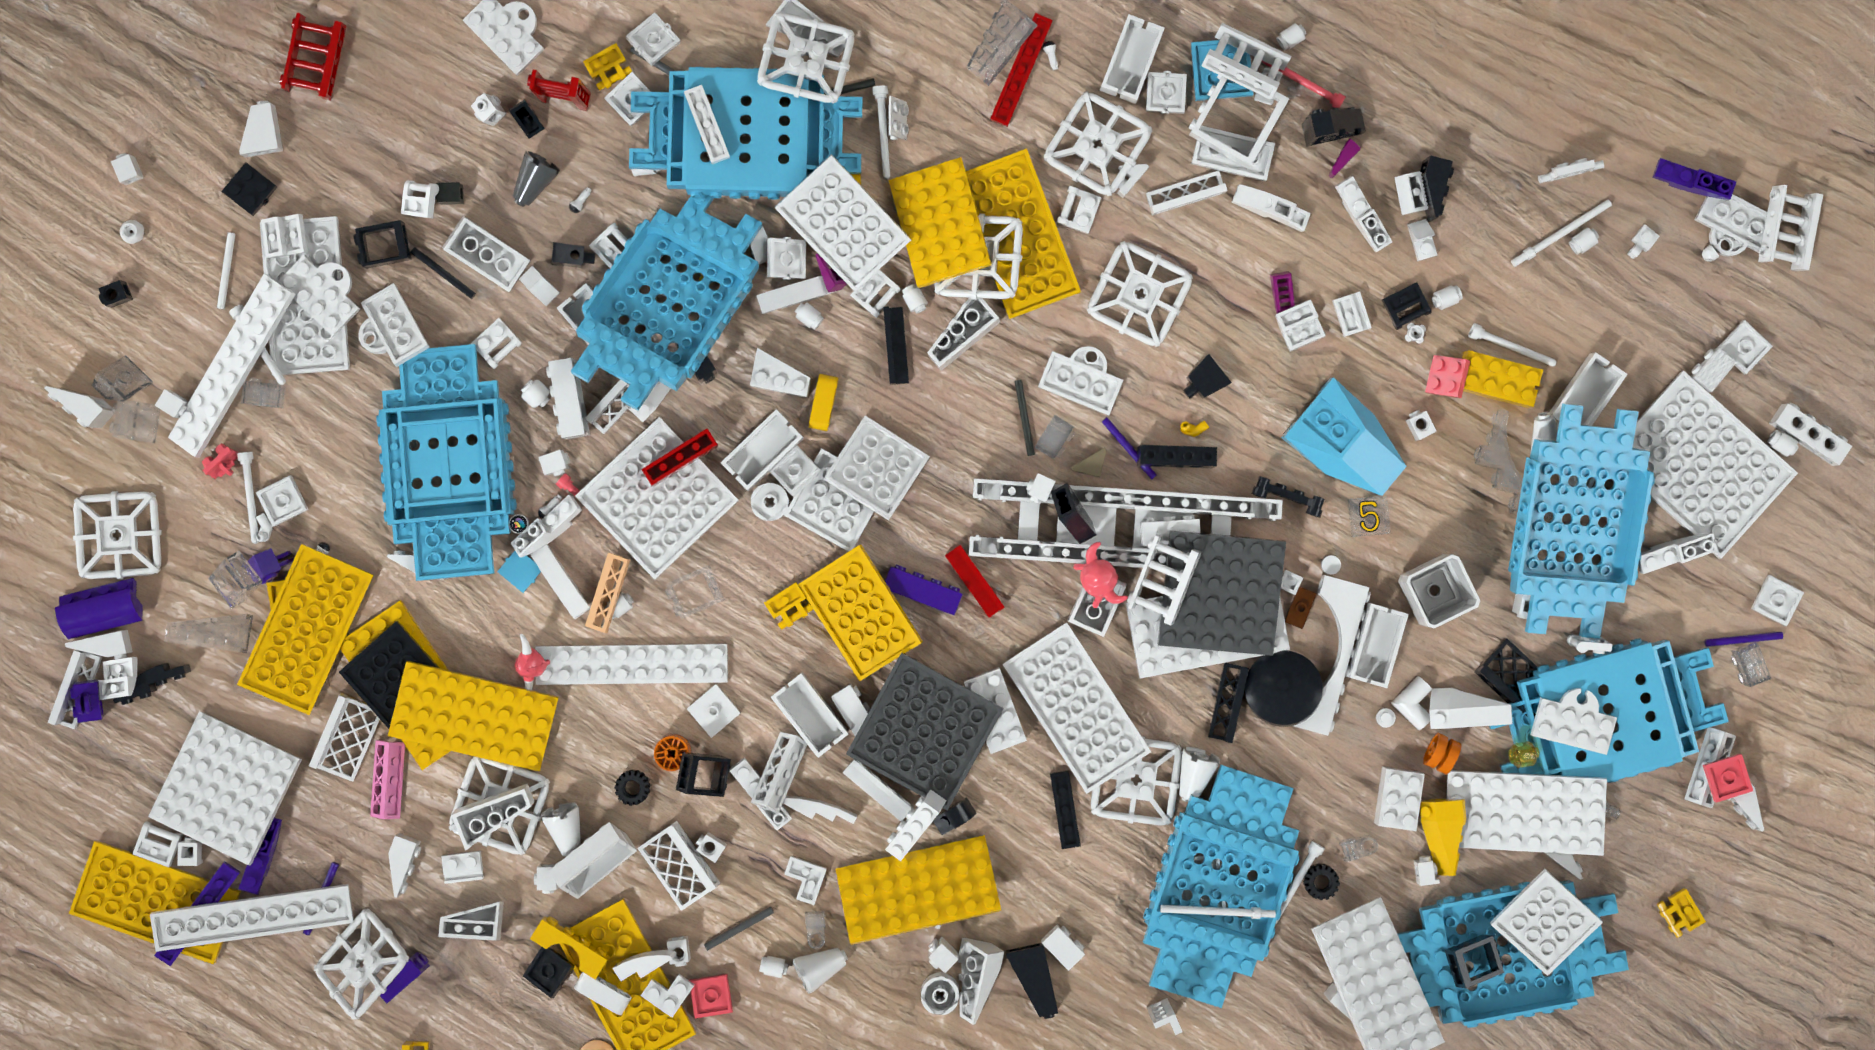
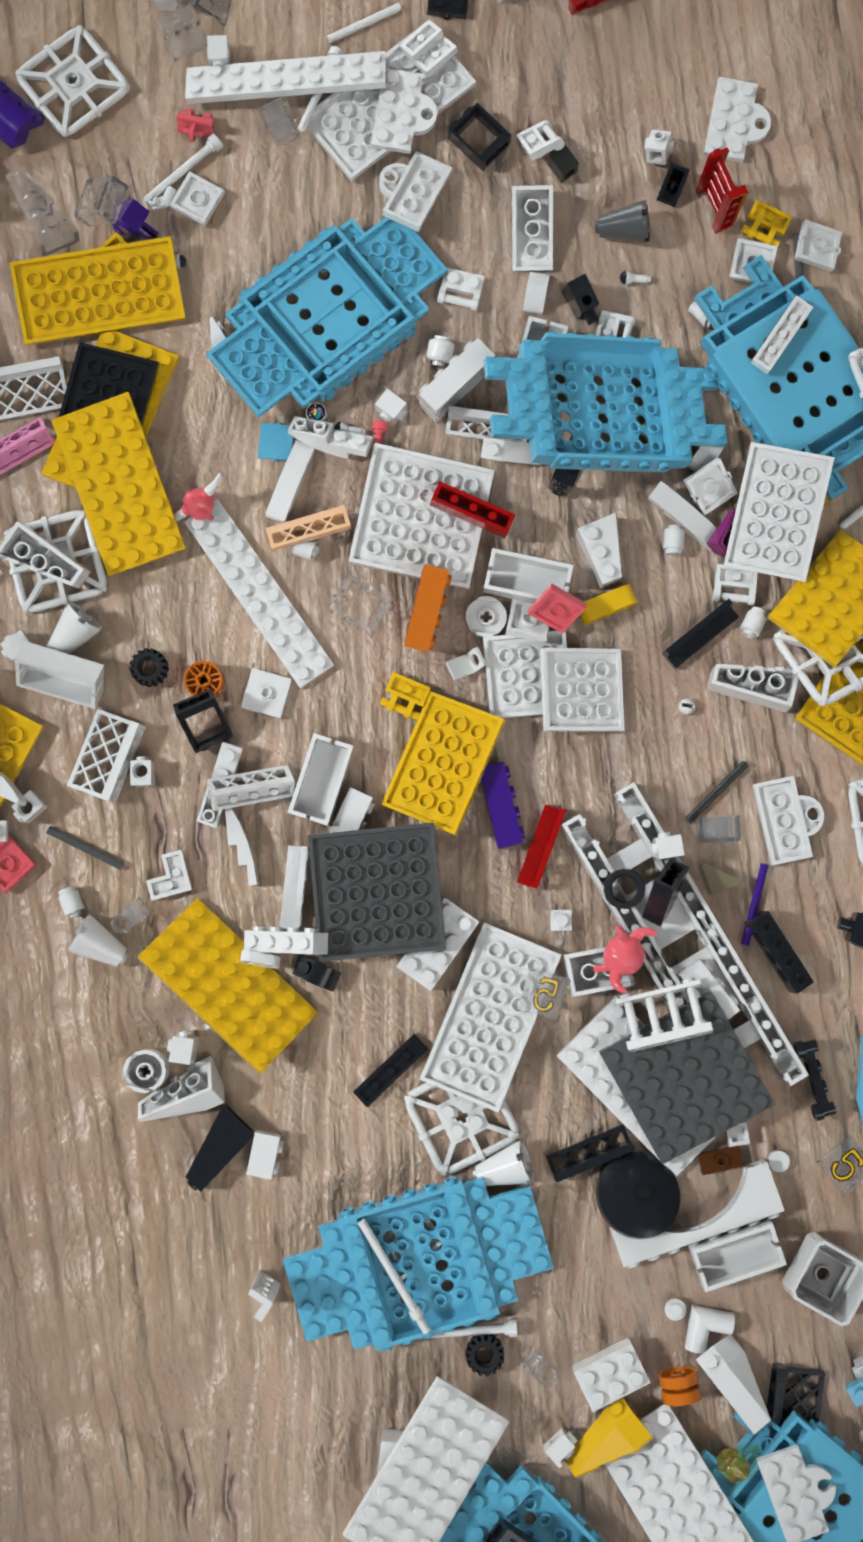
camera: 65 degrees right, 5 degrees down
(443, 273) = (490, 204): black bar -> none
(728, 539) = (426, 608): none -> orange brick
(795, 543) = (465, 664): none -> white bracket
(801, 446) = (557, 608): none -> coral plate
(915, 852) = (260, 959): none -> white beam
(946, 398) = (685, 710): none -> white hinge
(1040, 604) = (560, 920): none -> white plate
(1049, 528) = (639, 884): none -> black tyre
(1087, 656) = (544, 994): none -> clear tile
(1193, 430) = (811, 951): yellow arm -> none

